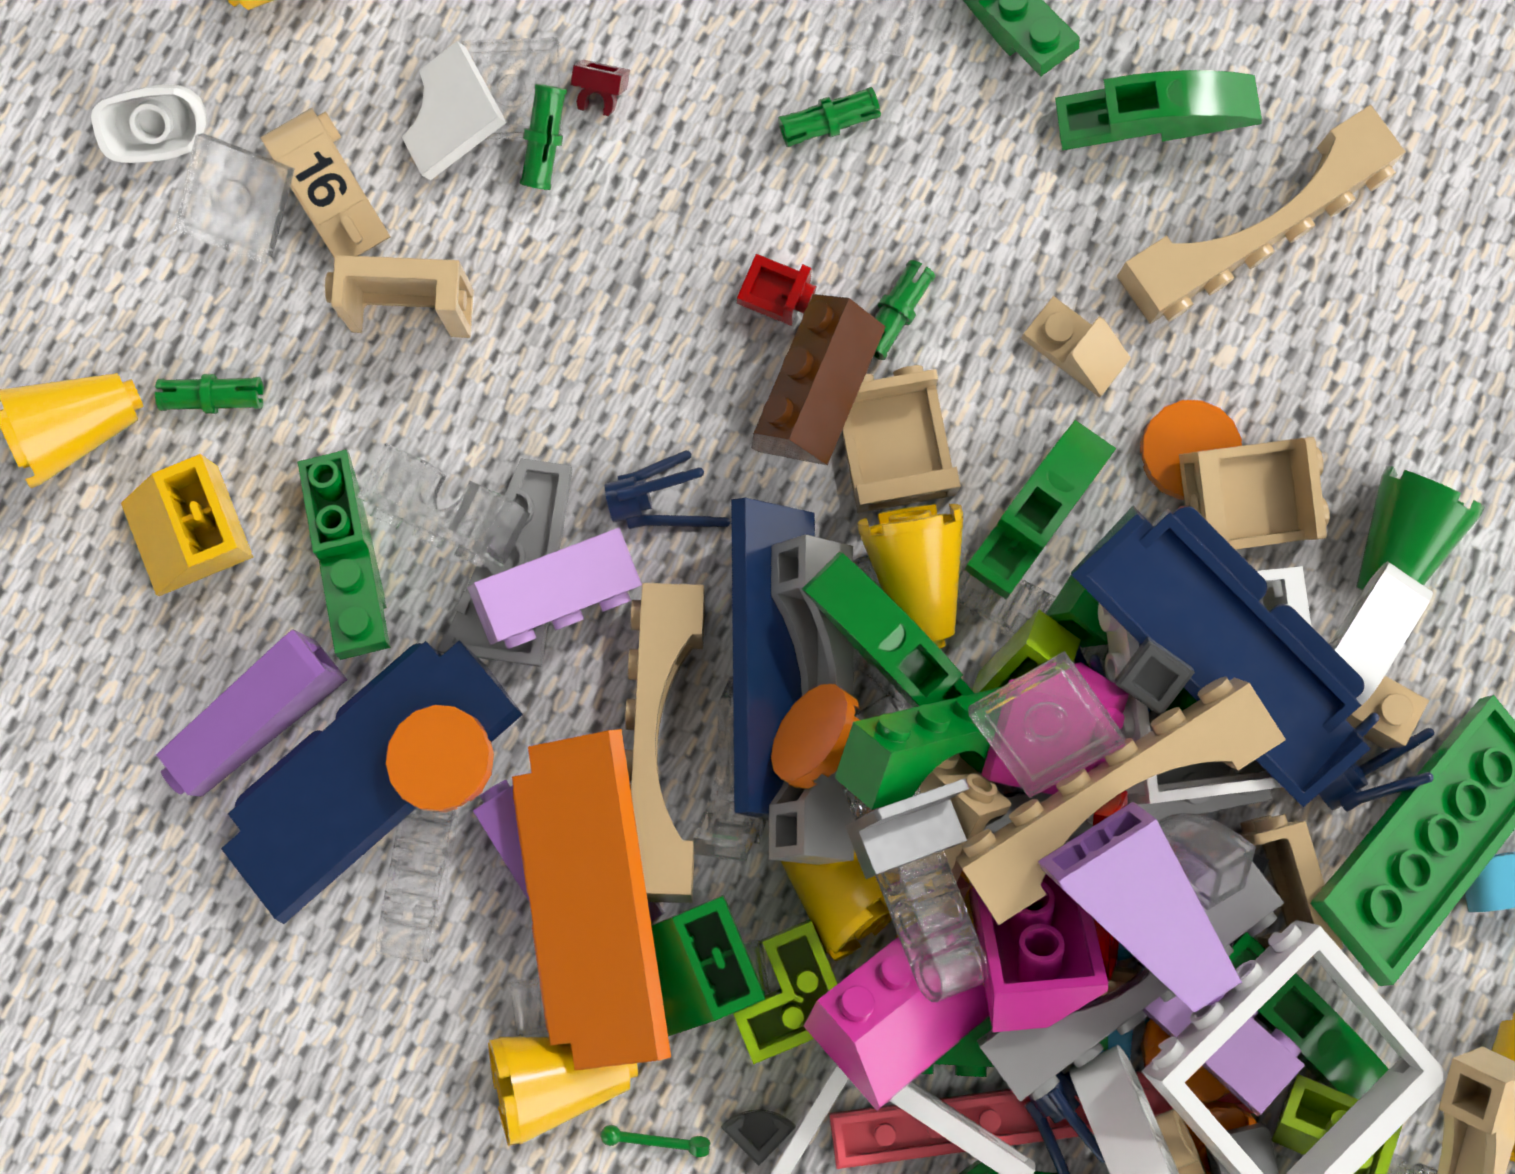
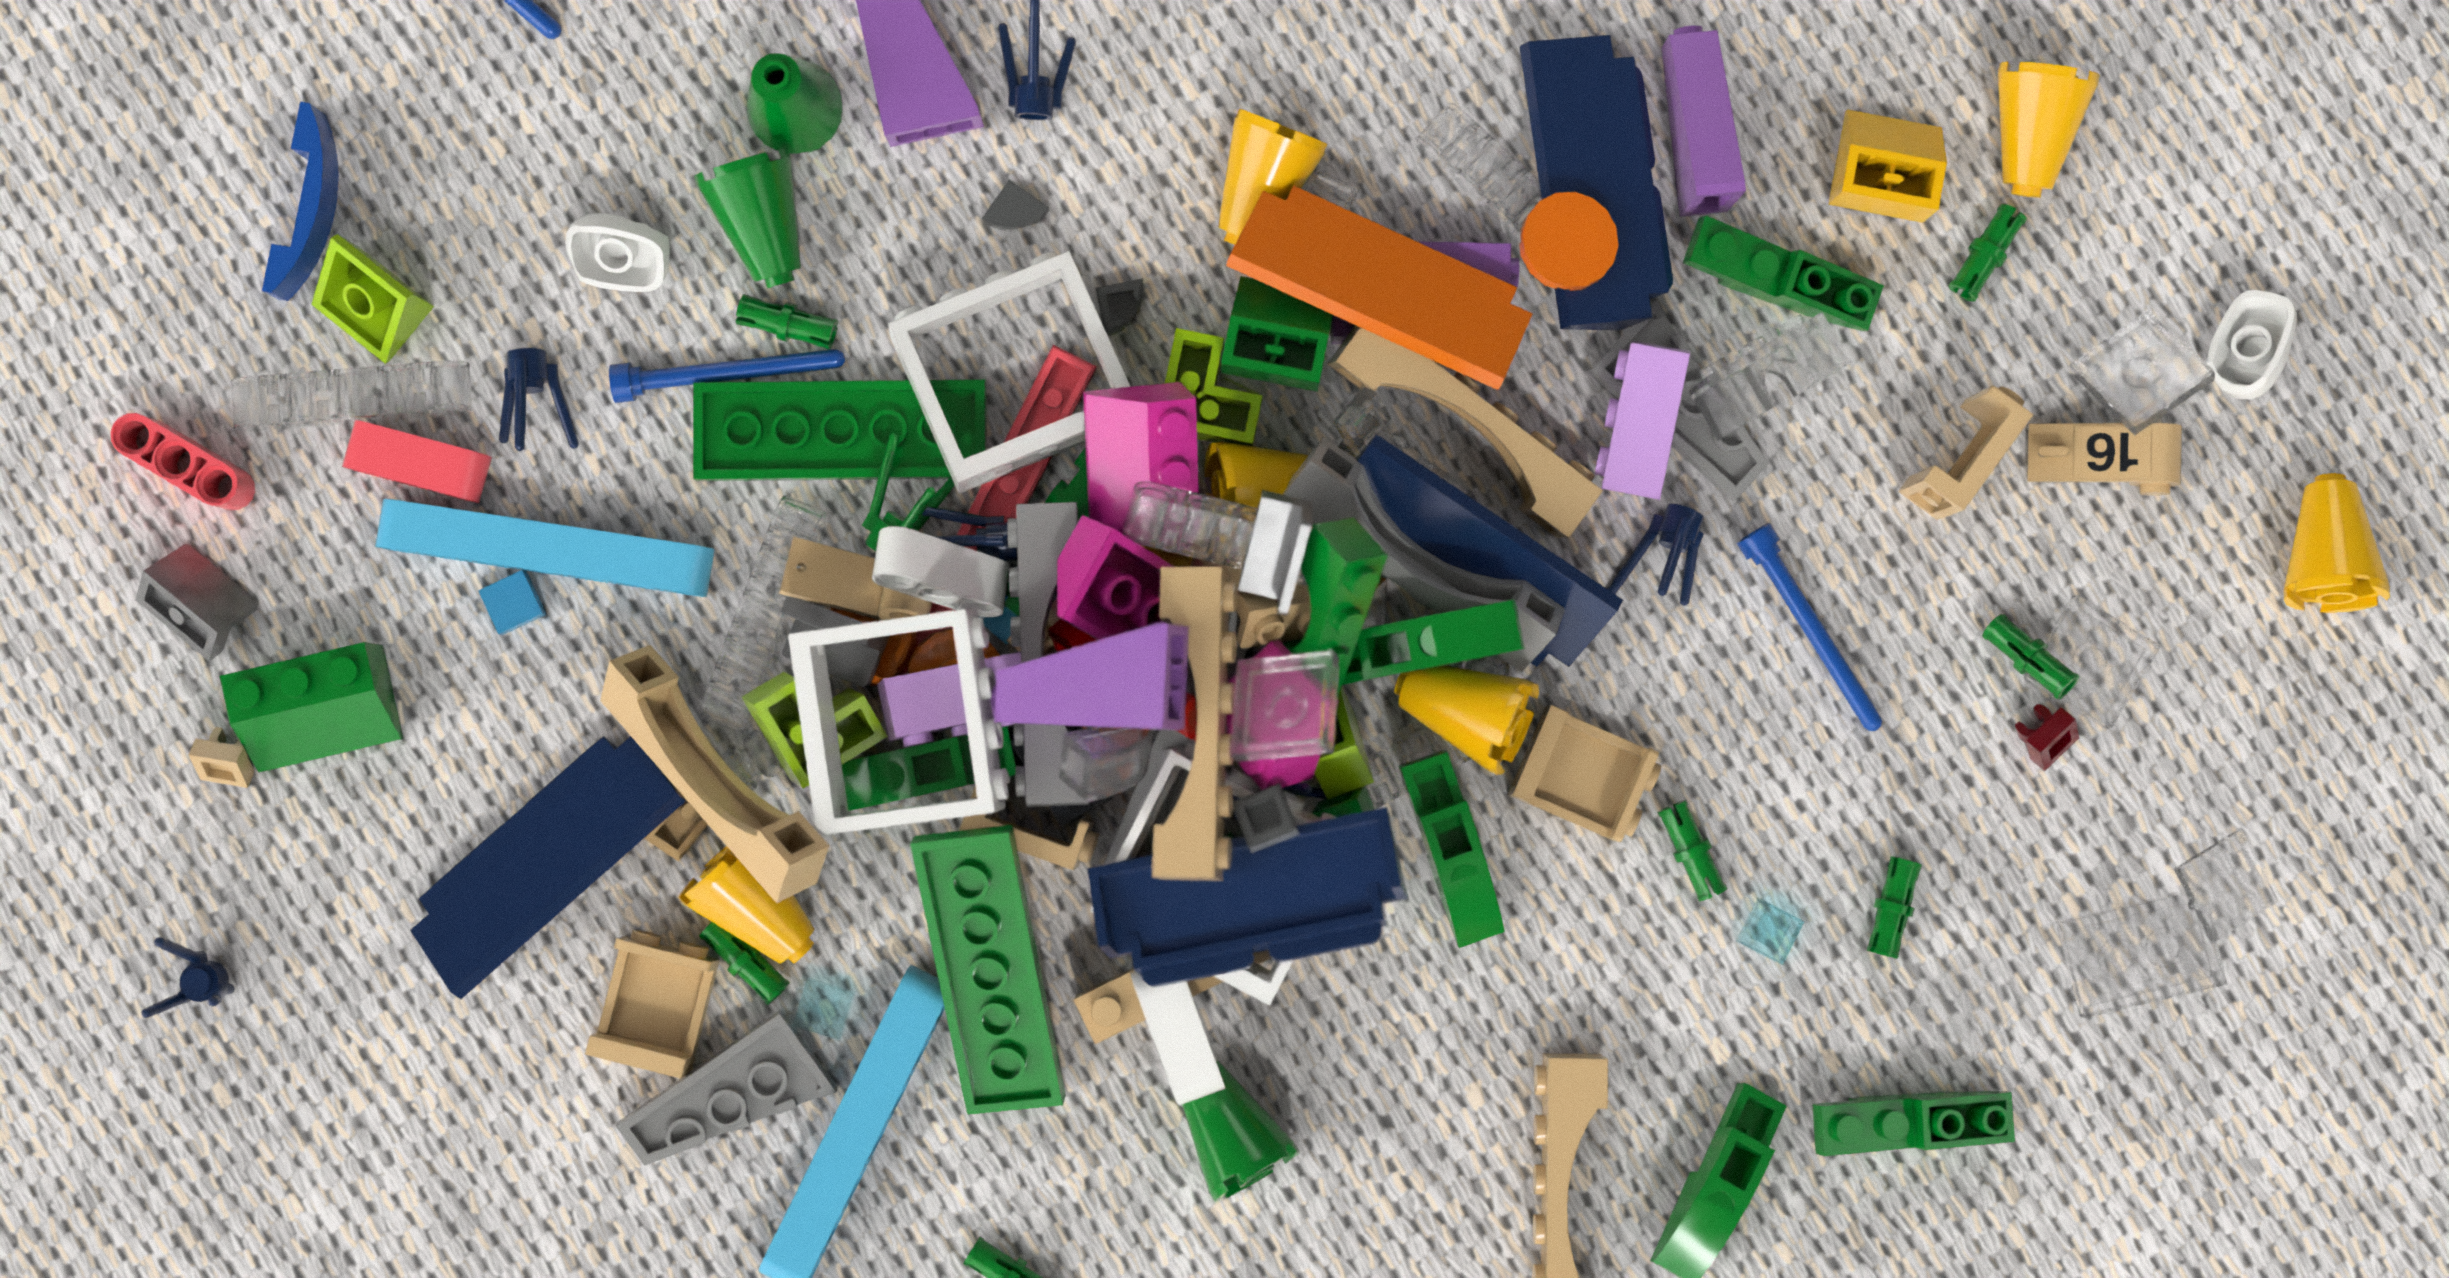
camera: 125 degrees right, 5 degrees up
(454, 112) = (2099, 598): white tile -> none
(598, 416) = (1763, 549): none -> blue piece
(697, 1146) = (1140, 252): green hinge -> none
(776, 289) = (1773, 762): red bracket -> none
(813, 735) = (1397, 530): orange tile -> none
(818, 380) = (1675, 737): reddish brown slope -> none
(919, 204) = (1770, 931): none -> clear light blue tile
(1079, 348) = (1564, 977): tan slope -> none
(1183, 429) = (1417, 1010): orange tile -> none
(1259, 491) = (1347, 1029): tan panel -> none
(1347, 788) = (1077, 937): dark blue plant -> none

